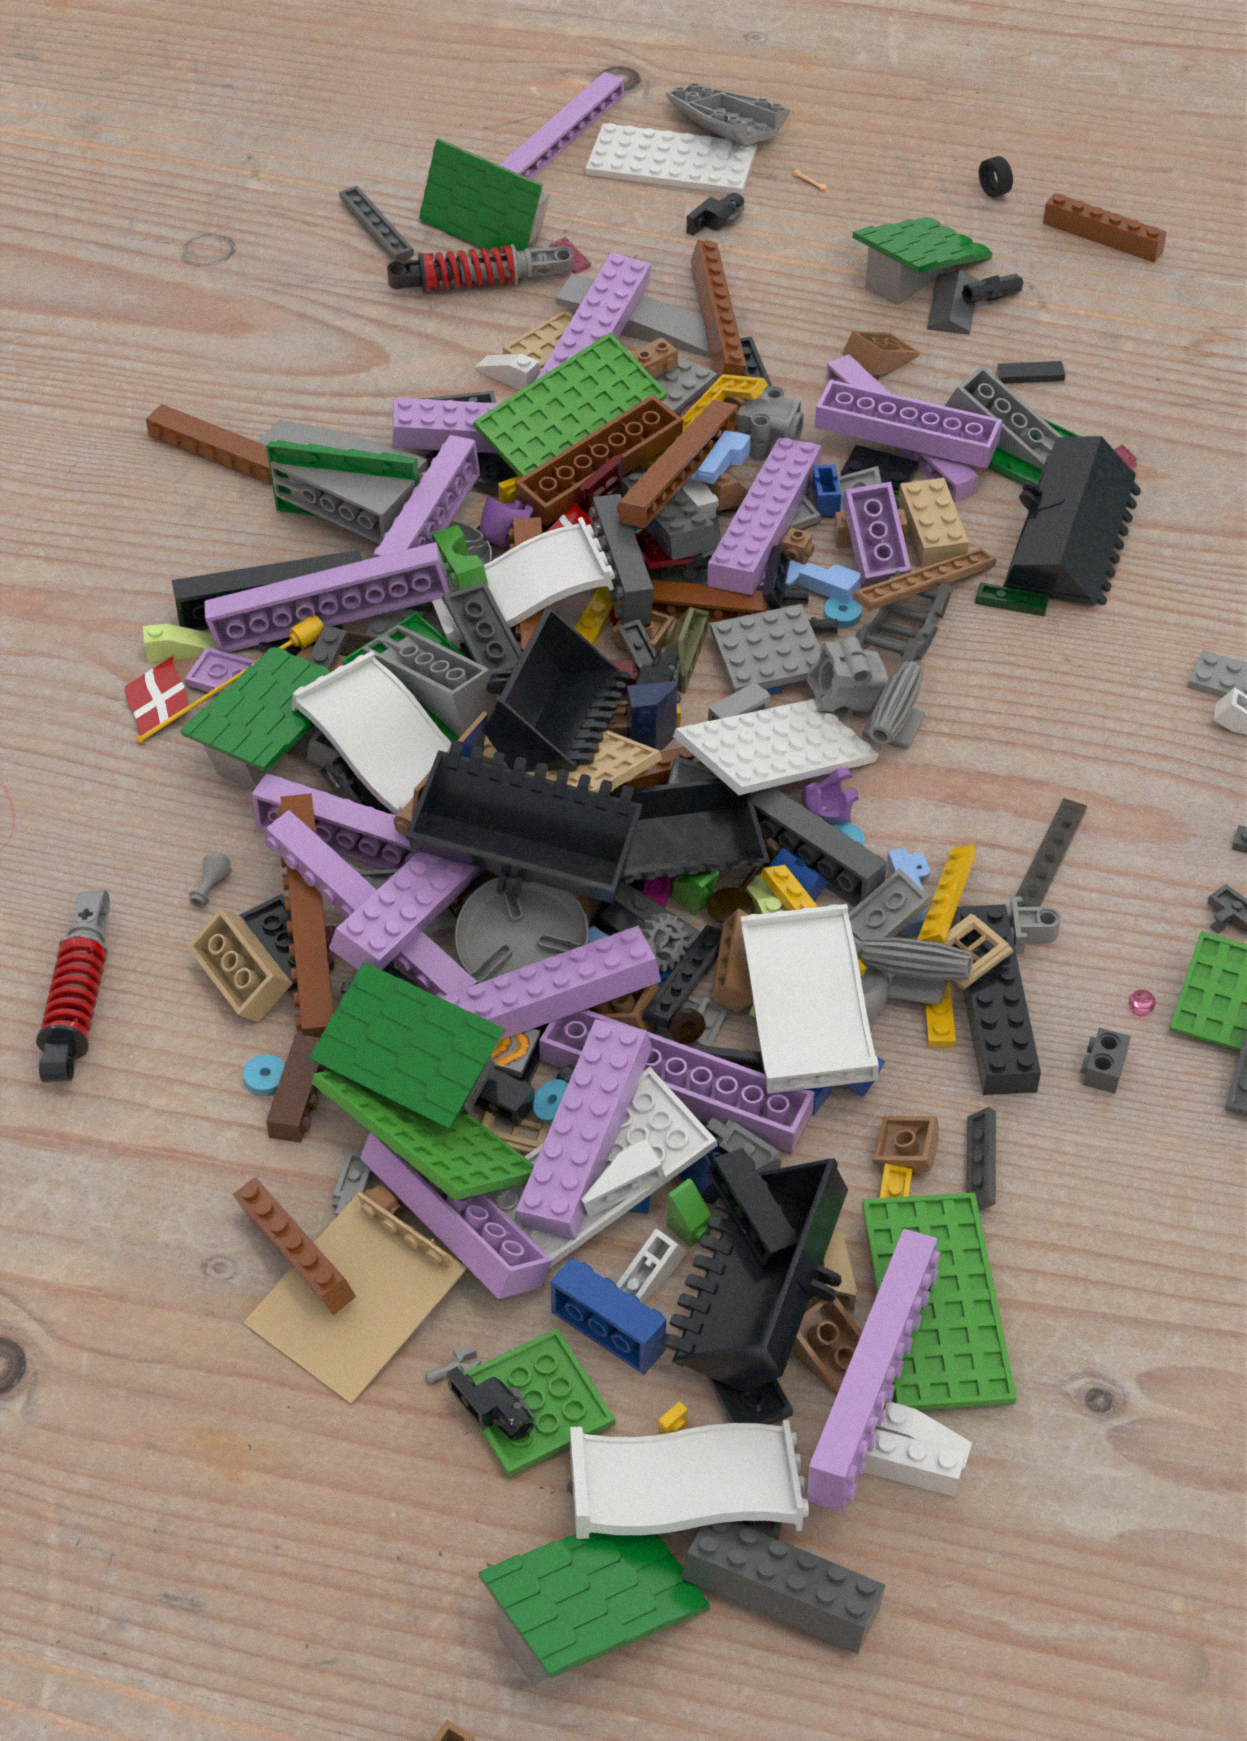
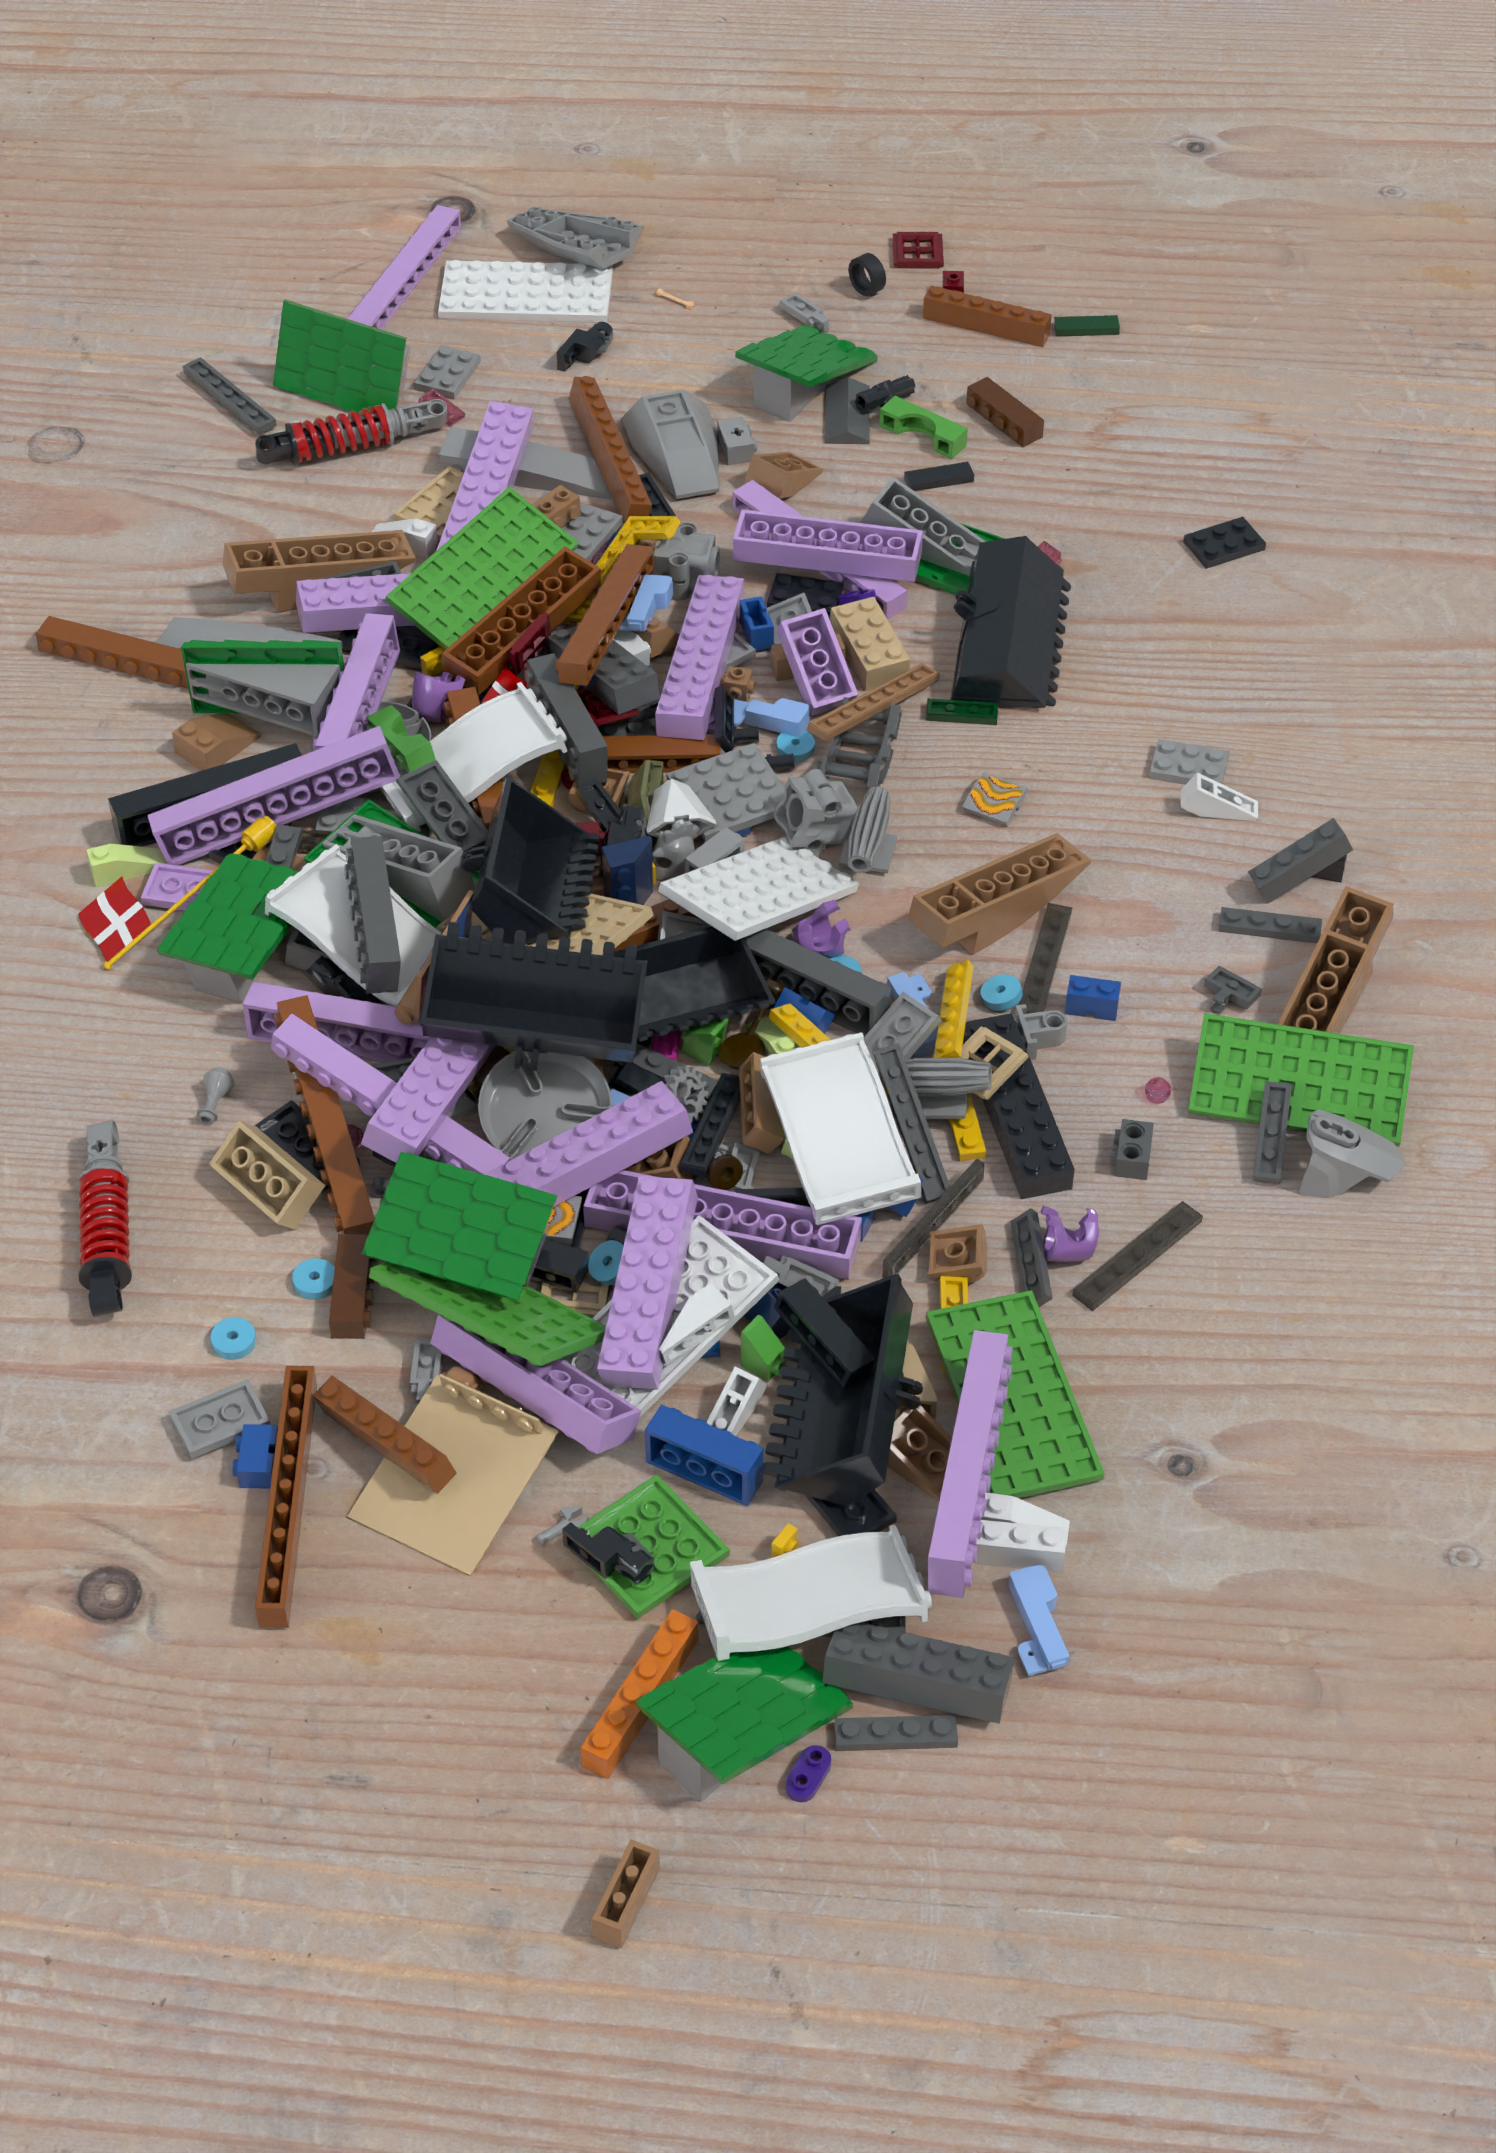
camera: 10 degrees left, 0 degrees up
(140, 1203) = (217, 1418): none -> light grey plate
(166, 1245) = (256, 1456): none -> blue brick
(176, 1133) = (235, 1348): none -> medium azure piece
(184, 1297) = (286, 1498): none -> dark orange brick
(288, 537) = (212, 739): none -> medium nougat slope
(380, 379) = (279, 563): none -> medium nougat slope
(390, 723) = (372, 915): none -> dark grey brick
(513, 1535) = (622, 1718): none -> orange brick
(583, 224) = (447, 371): none -> light grey plate
(651, 1673) = (809, 1771): none -> dark purple plate
(702, 694) = (676, 846): none -> light grey piece
(712, 663) = (677, 803): none -> white slope
(749, 1645) = (896, 1733): none -> dark grey plate
(784, 311) = (676, 441): none -> light grey wedge
(841, 316) = (736, 440): none -> light grey brick
(883, 1002) = (911, 1121): none -> dark grey plate
(888, 1104) = (934, 1219): none -> clear smoke tile
(920, 1523) = (1035, 1600): none -> light blue piece
(927, 475) = (856, 596): none -> dark purple plate
(930, 205) = (805, 311): none -> light grey hinge
(1000, 881) = (1001, 992): none -> medium azure piece
(1008, 312) = (904, 416): none -> bright green arch
(1013, 784) = (997, 895): none -> medium nougat slope
(1021, 1149) = (1066, 1244): none -> medium lavender piece
(1029, 688) = (994, 799): none -> slope
(1066, 162) = (924, 263): none -> dark red piece
(1077, 190) = (953, 280): none -> dark red brick
(1091, 899) = (1092, 997): none -> blue brick
(1091, 1171) = (1137, 1256): none -> clear smoke tile
(1106, 318) = (1005, 411): none -> reddish brown brick
(1200, 246) = (1087, 325): none -> dark green tile

